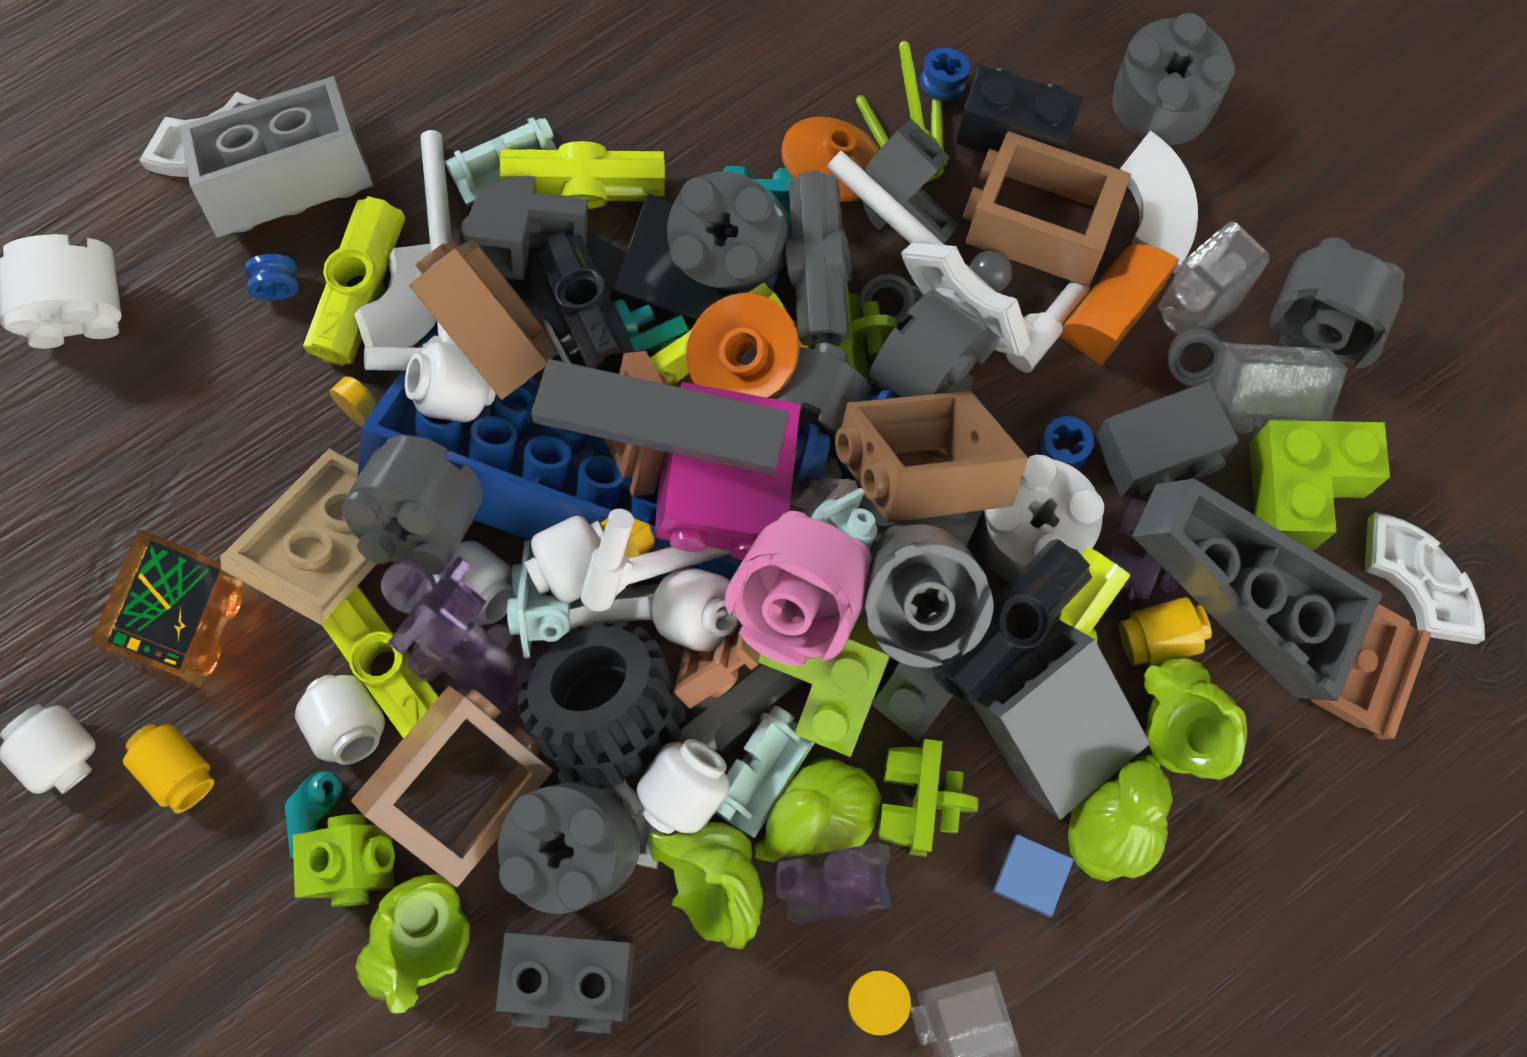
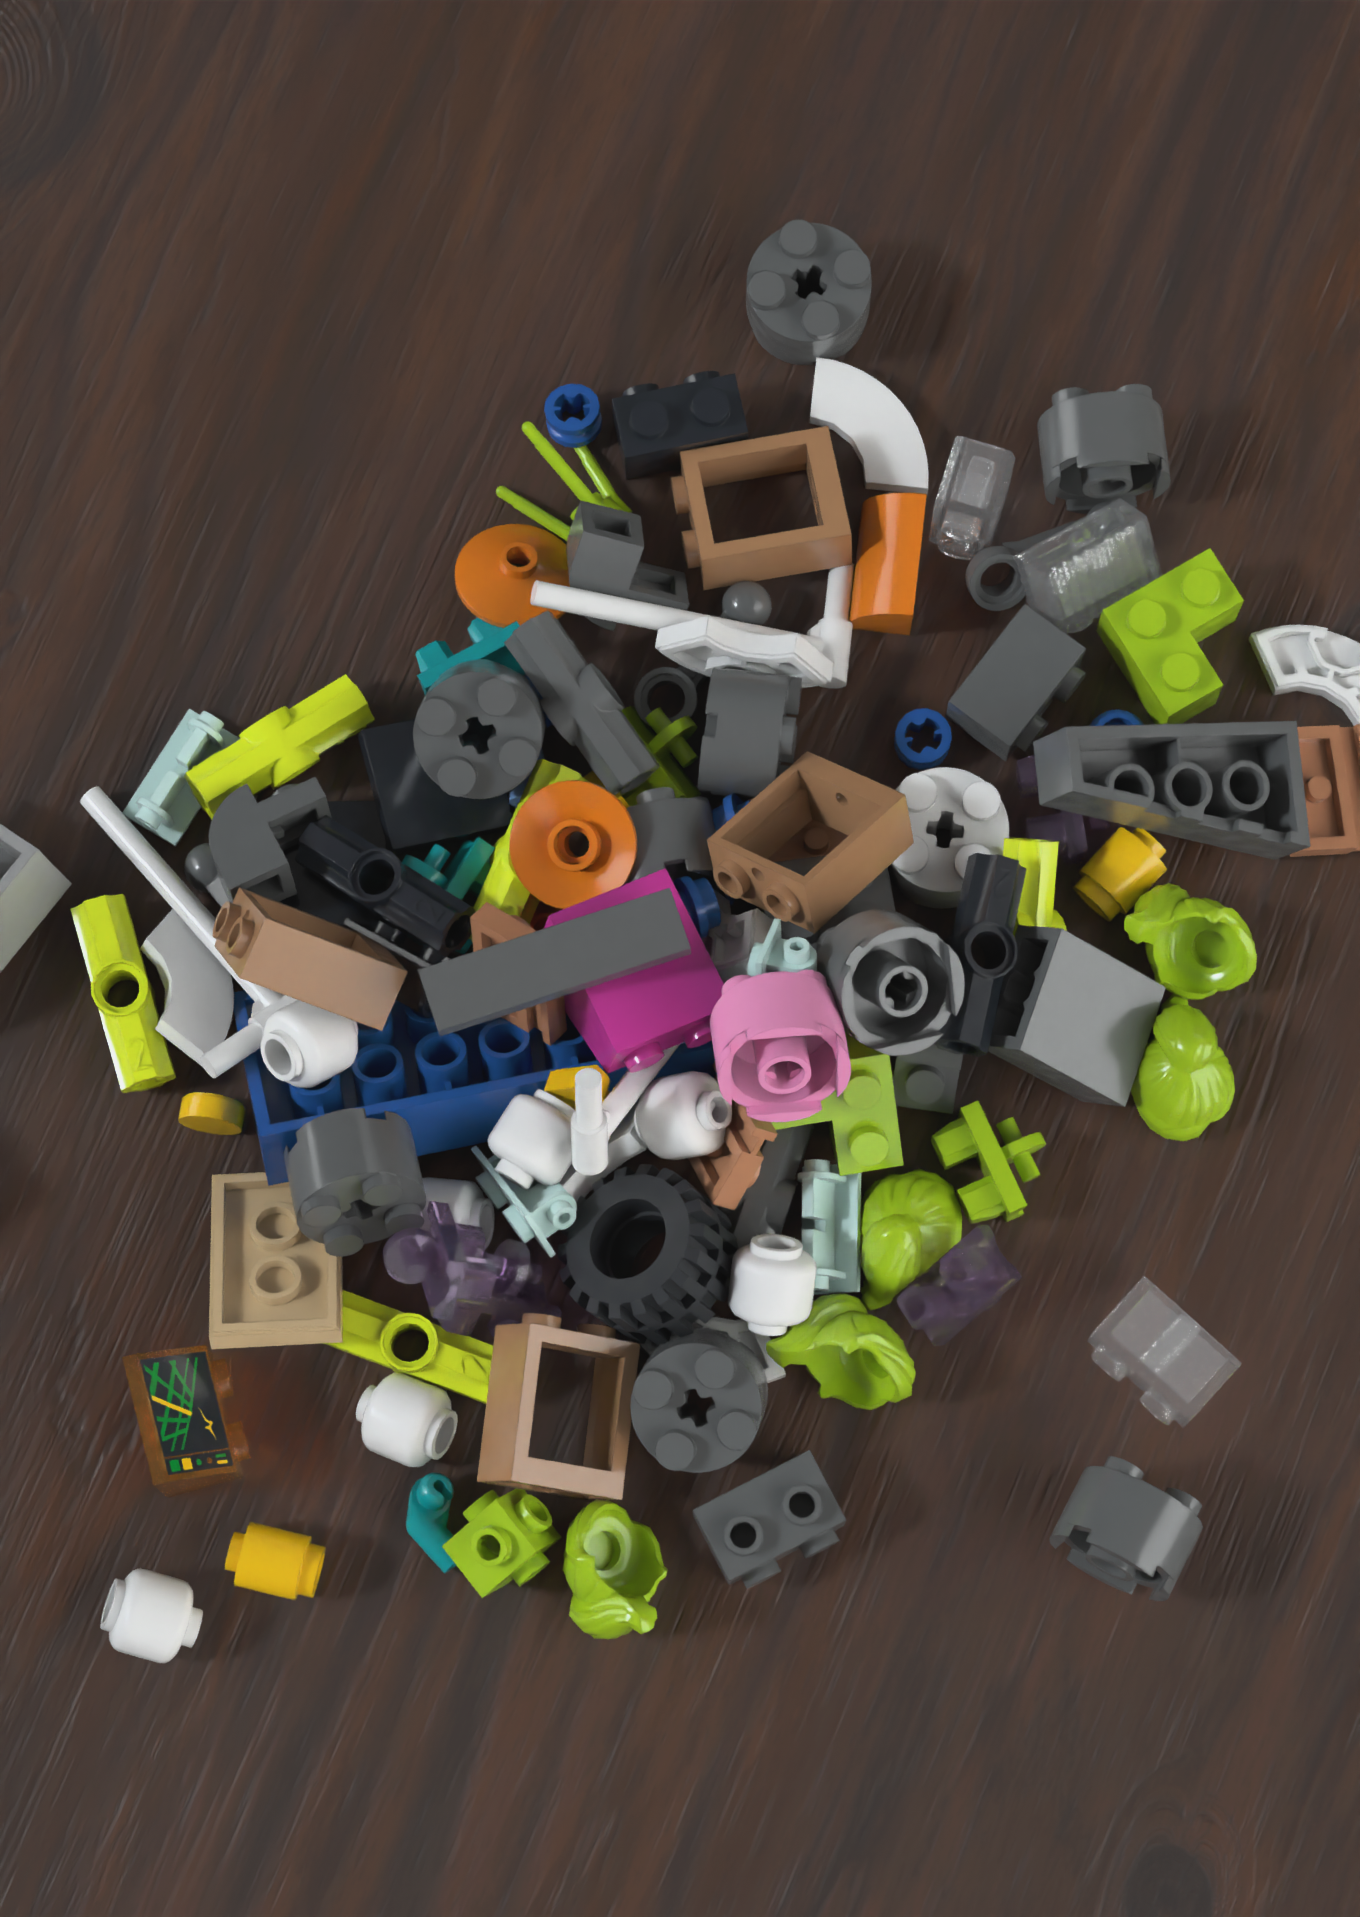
camera: 30 degrees left, 5 degrees up
(271, 277) = (35, 1039): blue bush -> none
(879, 1003) = (1059, 1369): yellow tile -> none
(1033, 875) = (1130, 1172): medium blue tile -> none

